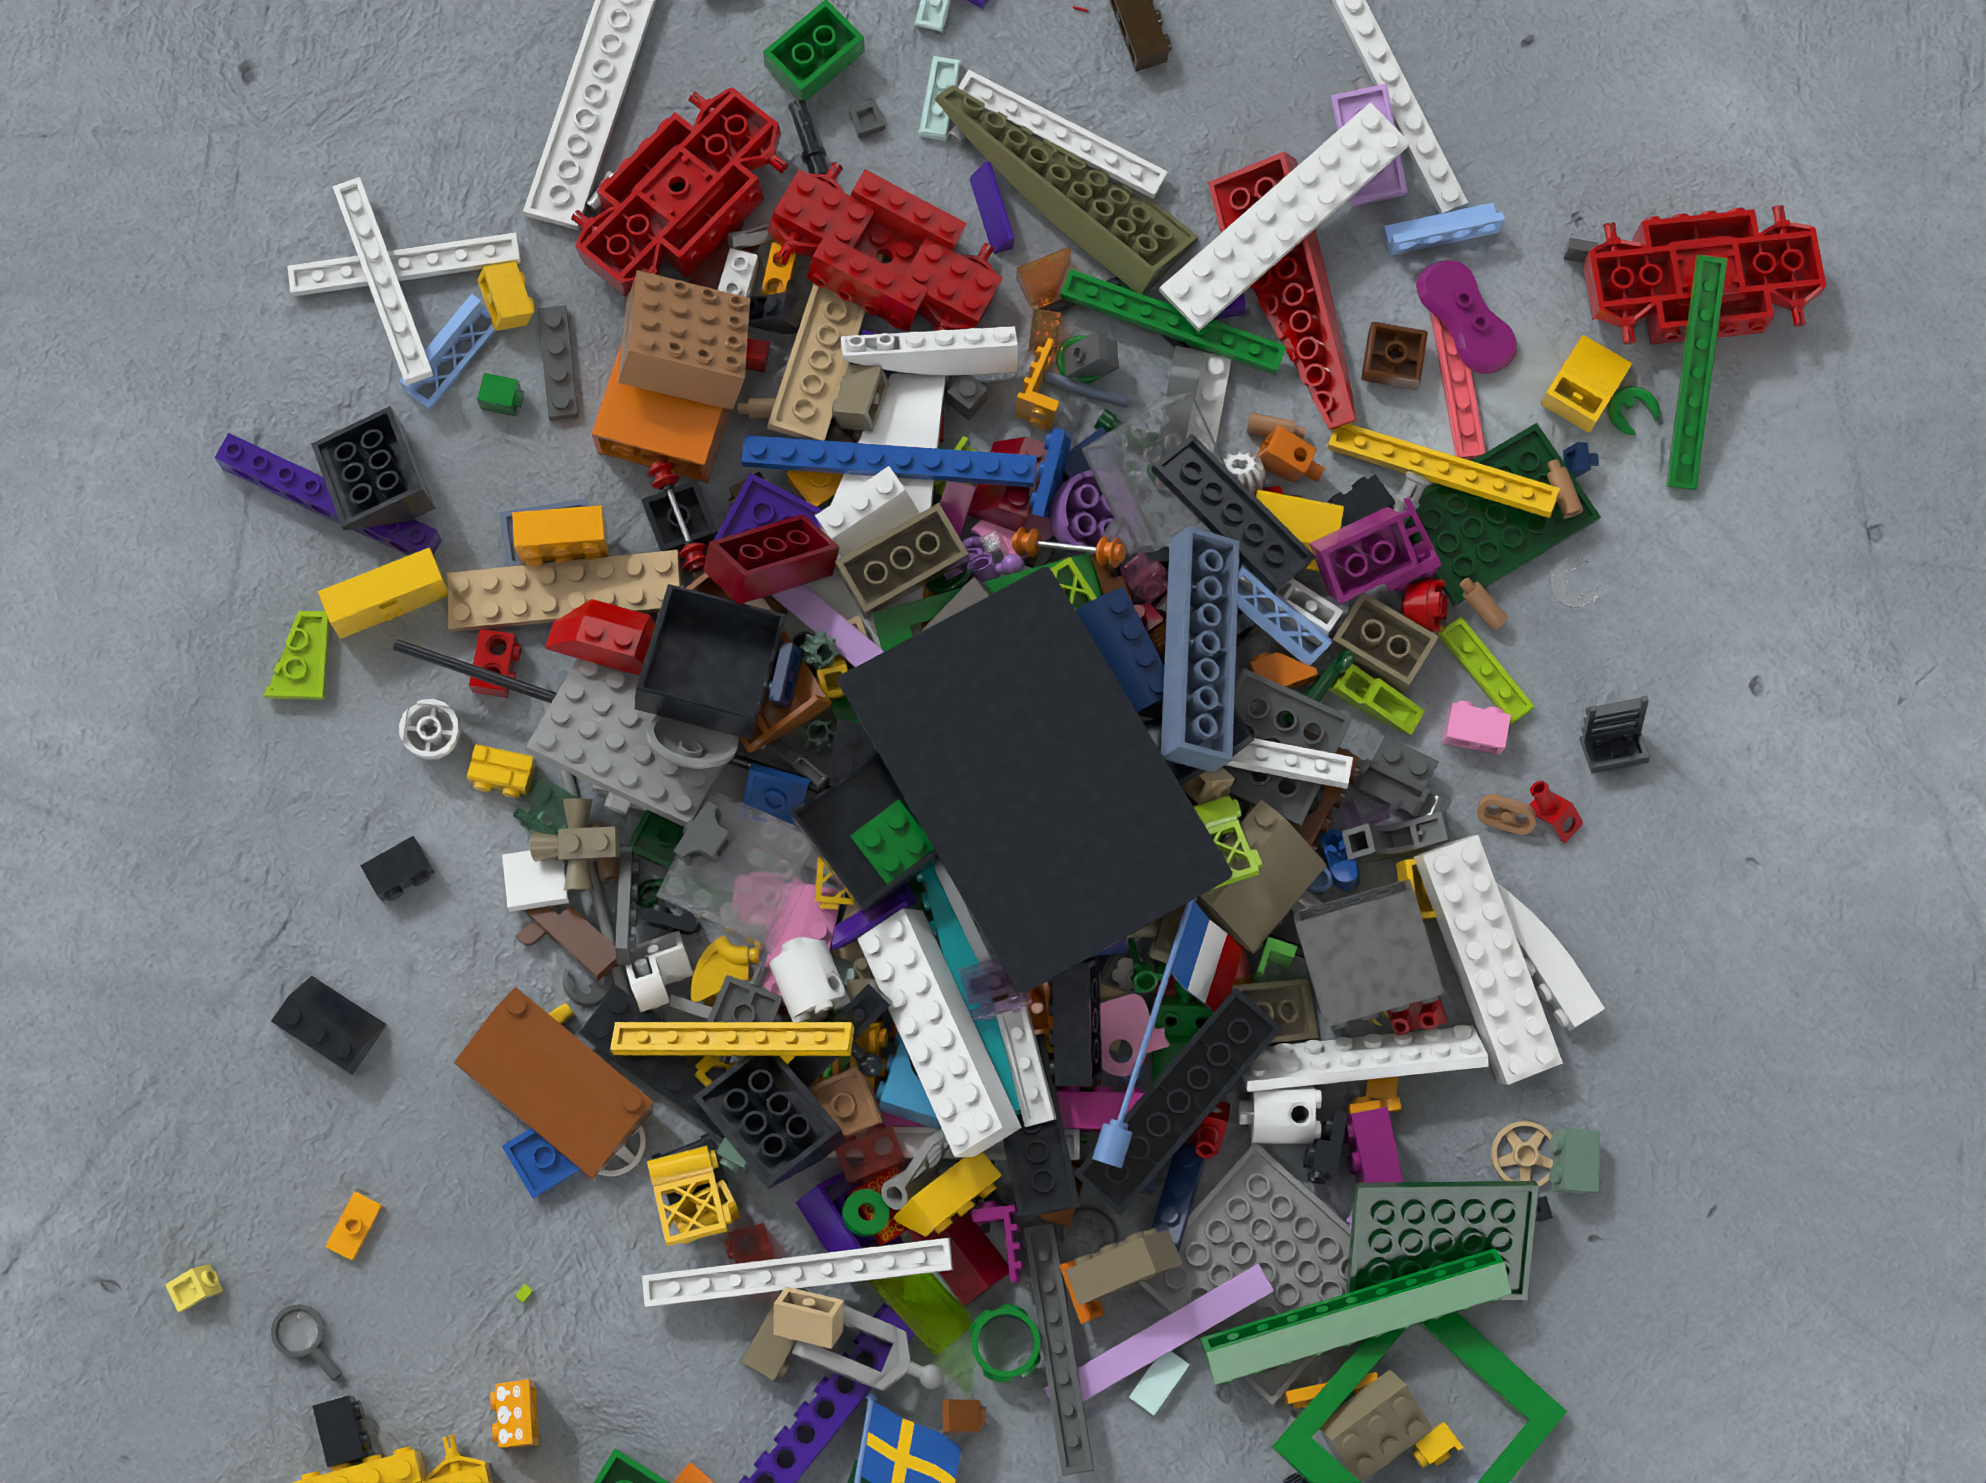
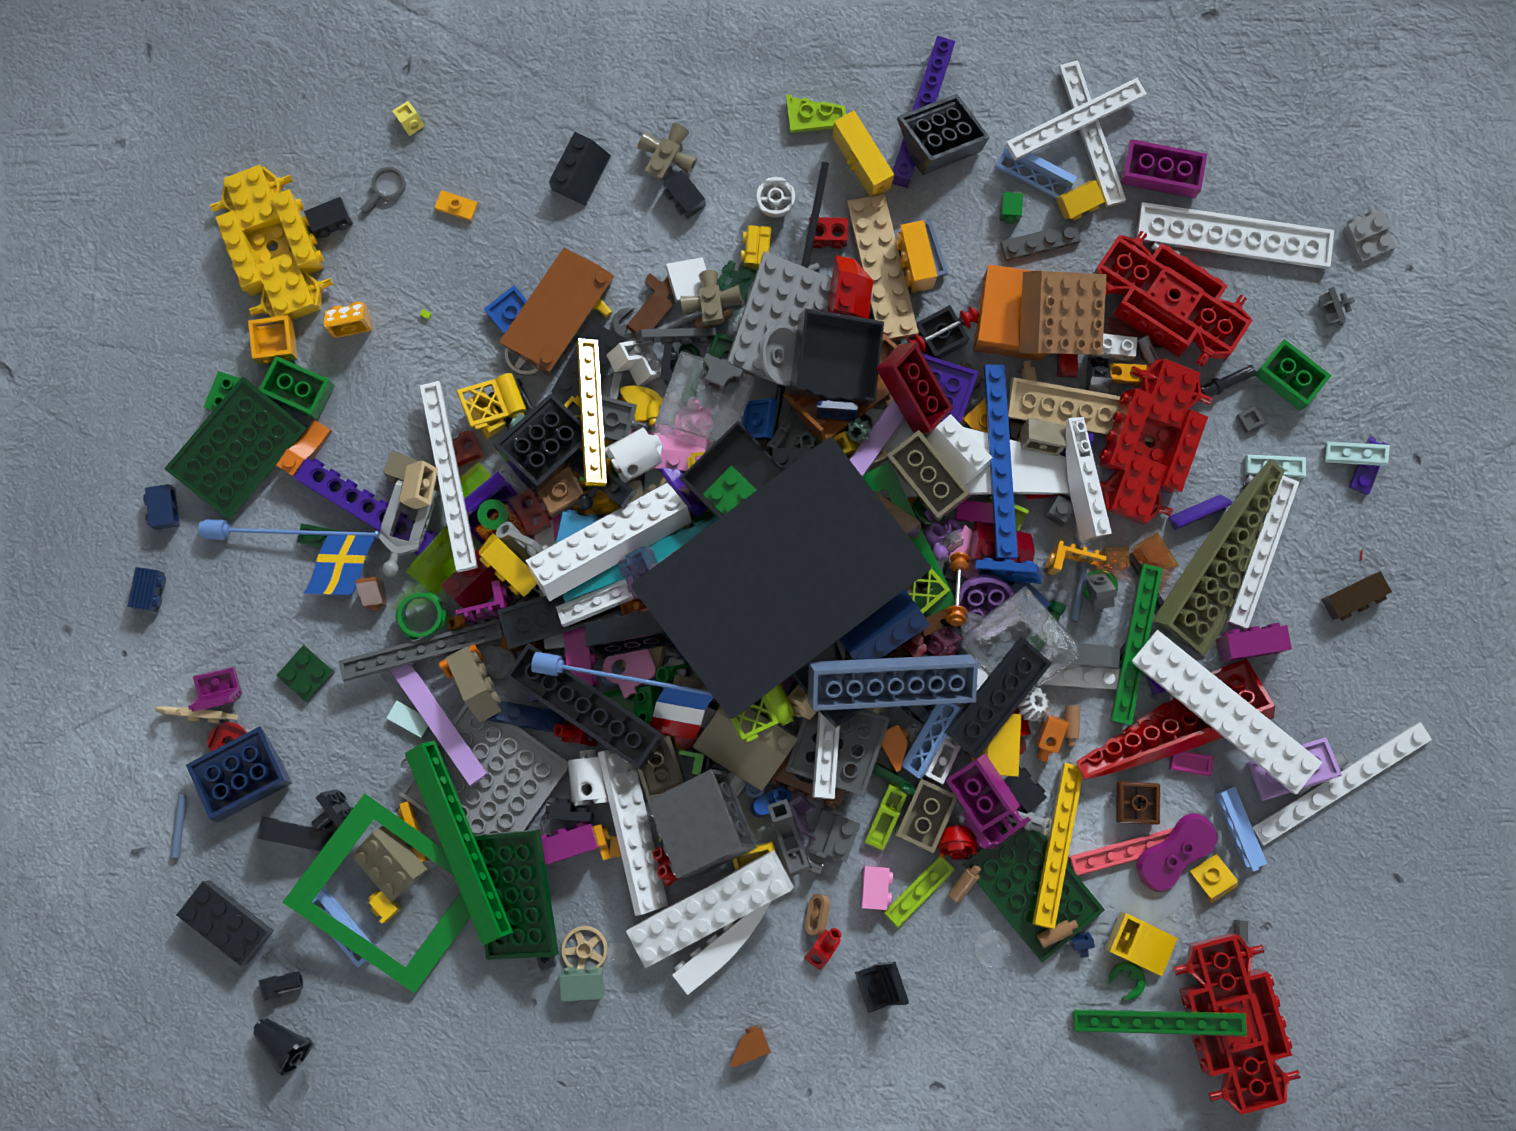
camera: 85 degrees right, 5 degrees up
(327, 885) = (667, 152): none -> dark tan brick
(478, 173) = (1163, 168): none -> magenta brick
(800, 1238) = (473, 479): none -> clear neon green plate
(1021, 1286) = (456, 623): none -> reddish brown piece
(1190, 166) = (1253, 642): none -> magenta brick
(1345, 277) = (1192, 763): none -> dark pink tile
(1505, 273) = (1214, 878): none -> yellow piece
(1682, 932) = (750, 1046): none -> dark orange slope

